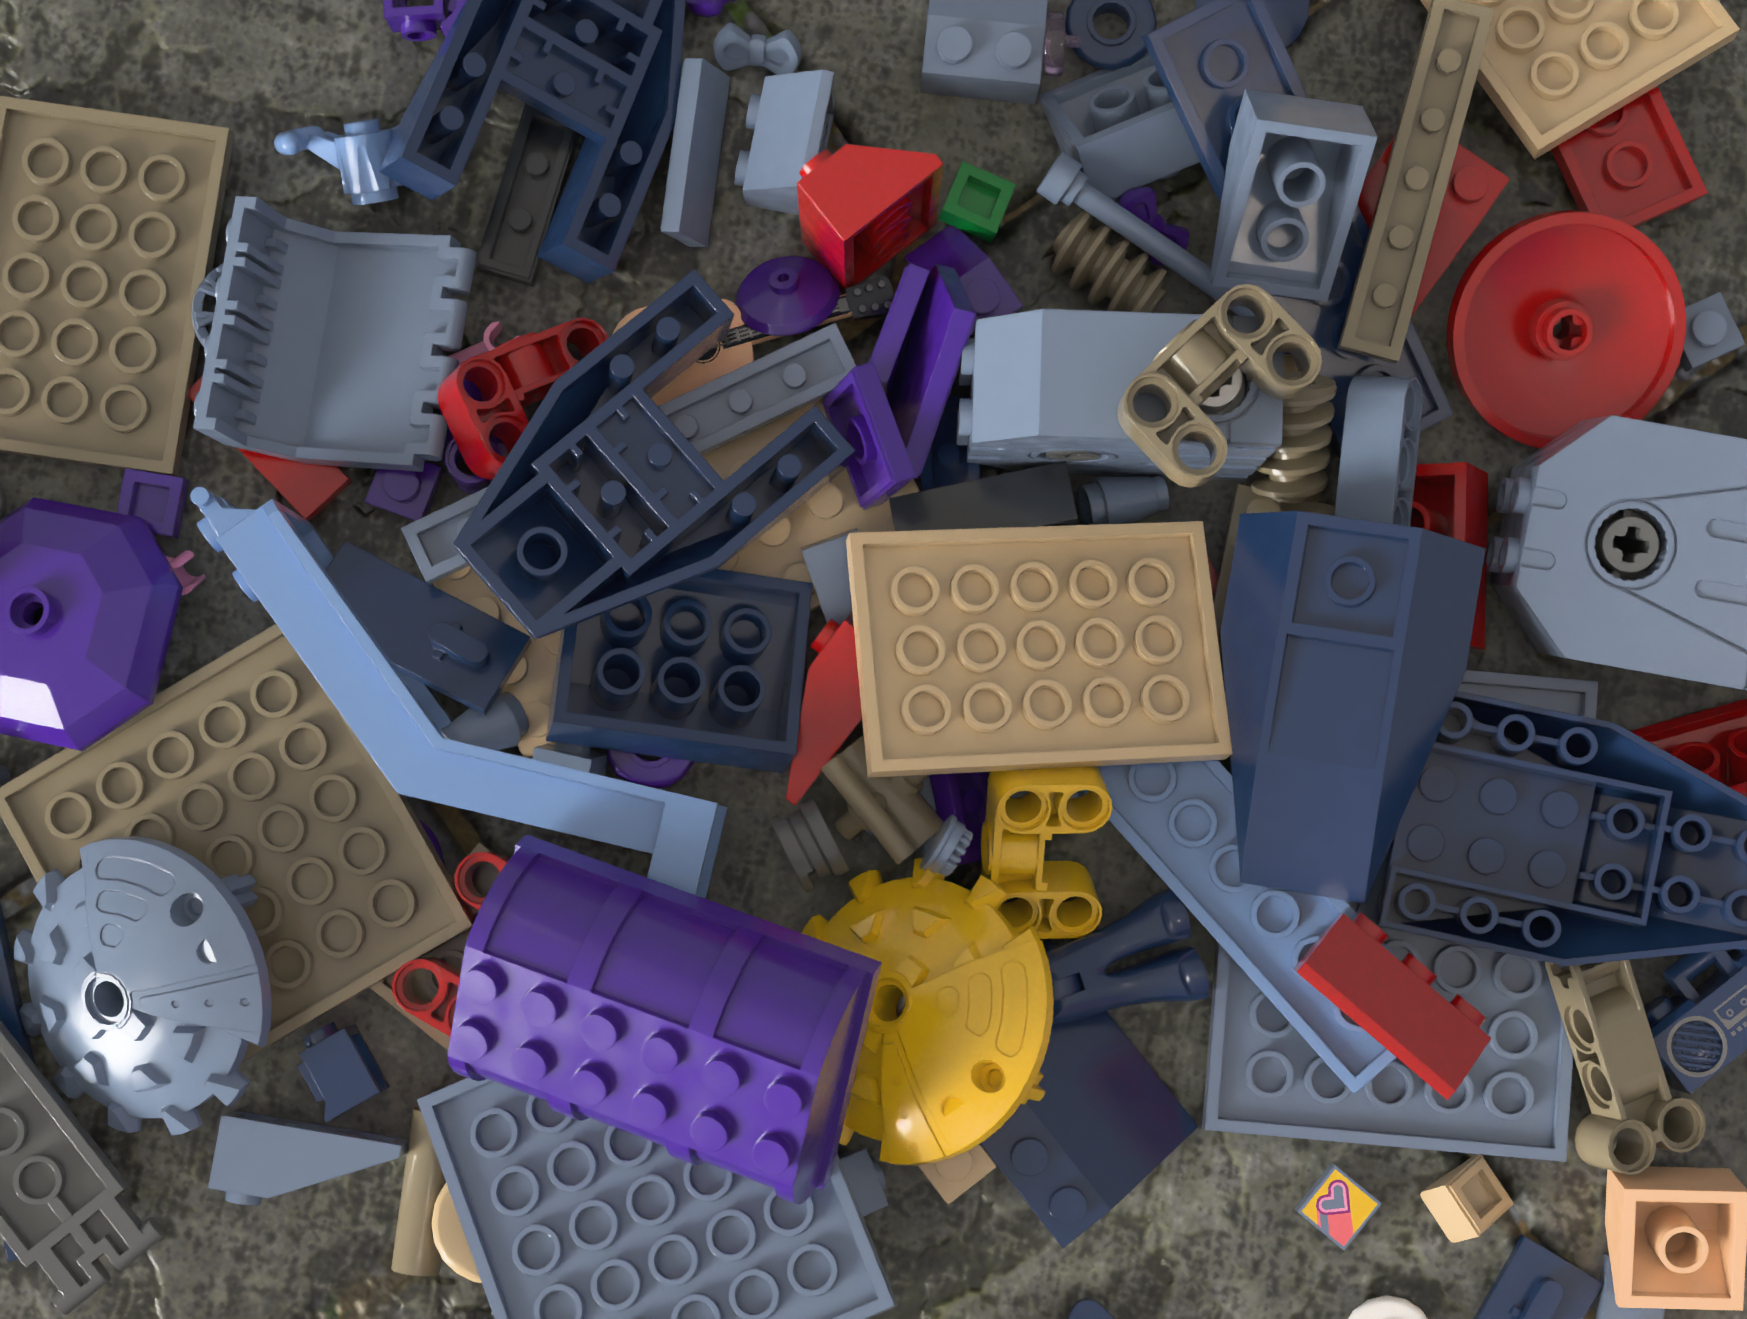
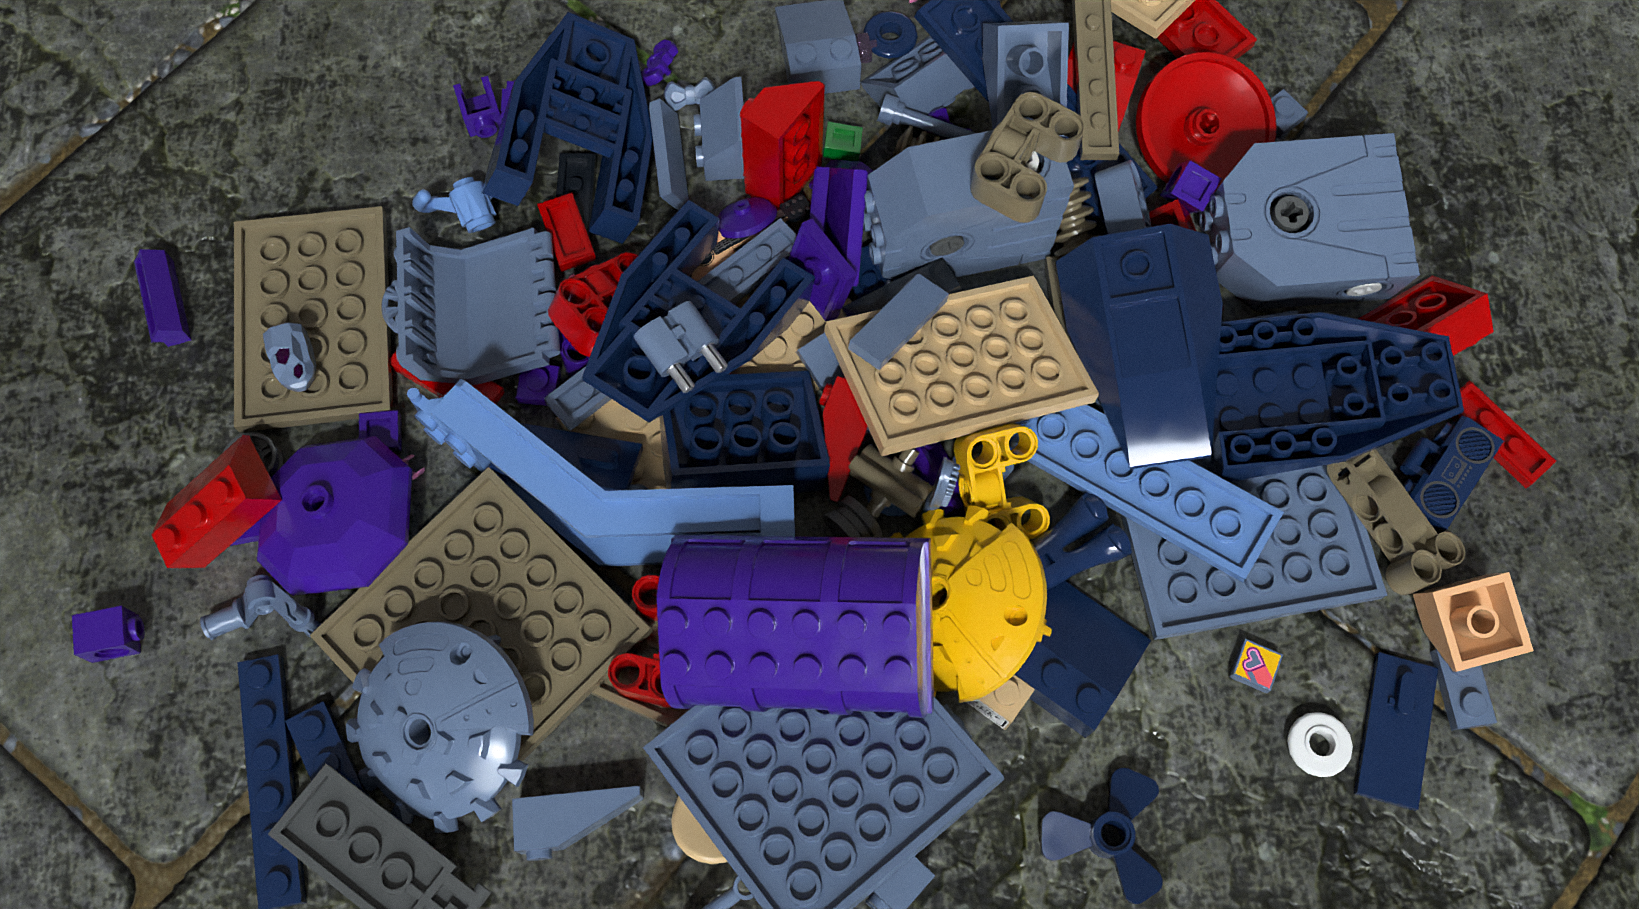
camera: 15 degrees left, 15 degrees down
(40, 356) = (291, 355): none -> sand blue rock
(340, 1069) = (585, 752): dark blue window -> none
(422, 1183) = (659, 802): dark tan piece -> none
(503, 247) = (568, 232): none -> red tile
(607, 524) = (677, 339): none -> sand blue piece
(960, 562) = (898, 321): none -> sand blue tile
(1121, 499) = (982, 276): sand blue cone -> none
(1395, 1002) = (1251, 510): red slope -> none
(1467, 1199) = (1333, 640): tan slope -> none
(1496, 442) = (1191, 186): none -> dark purple brick

